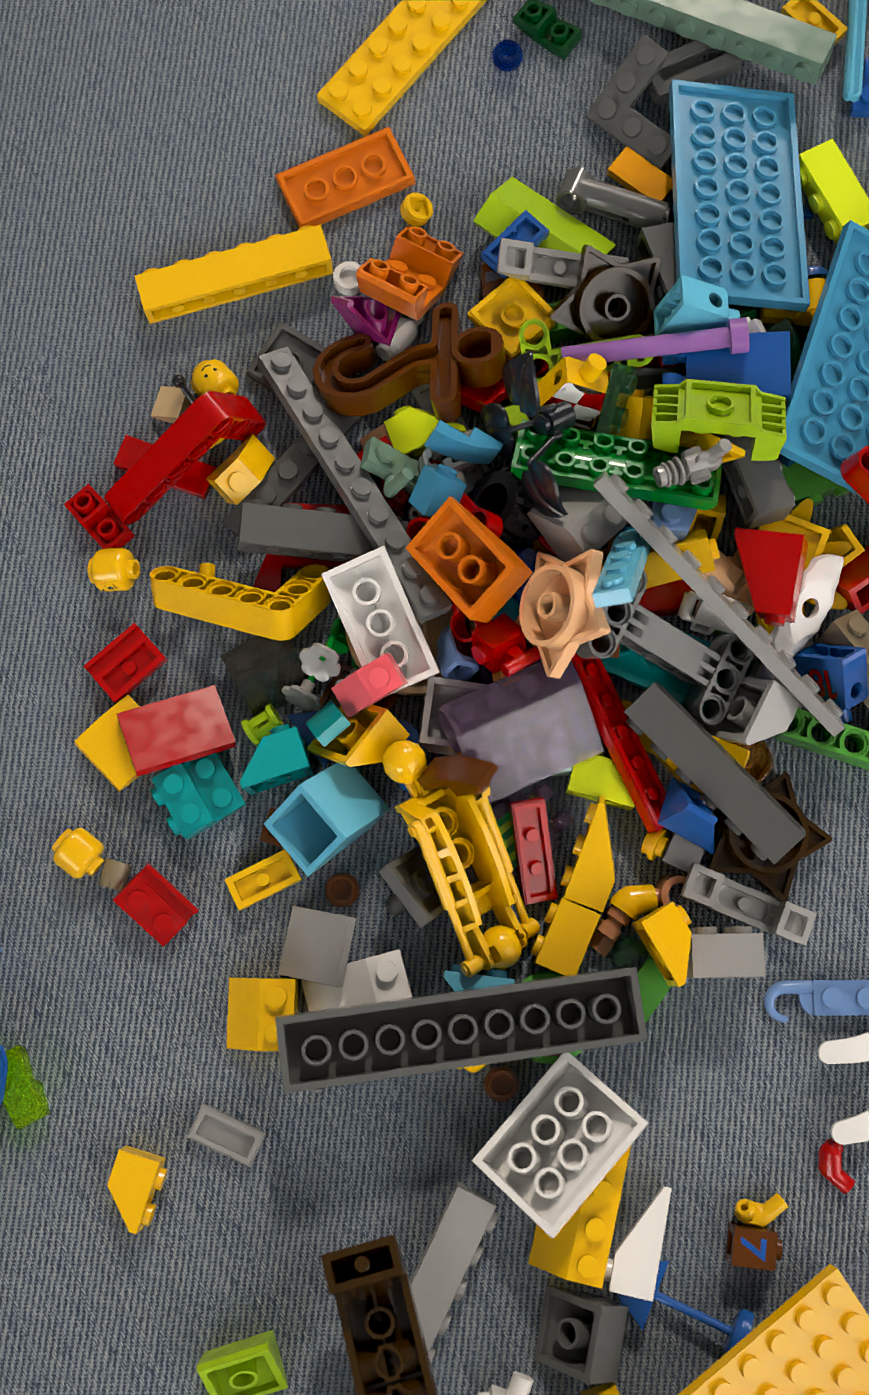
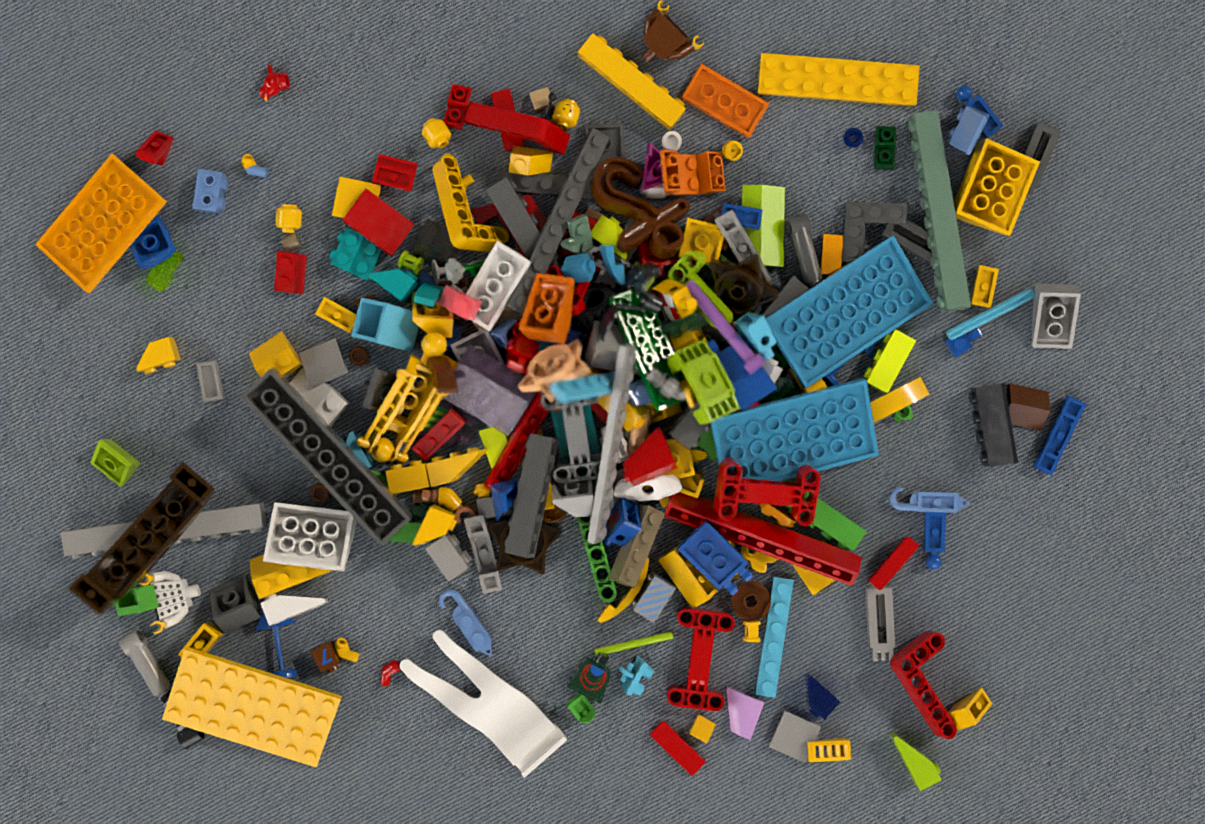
camera: 55 degrees right, 10 degrees up
(209, 192) = (666, 37): none -> reddish brown torso

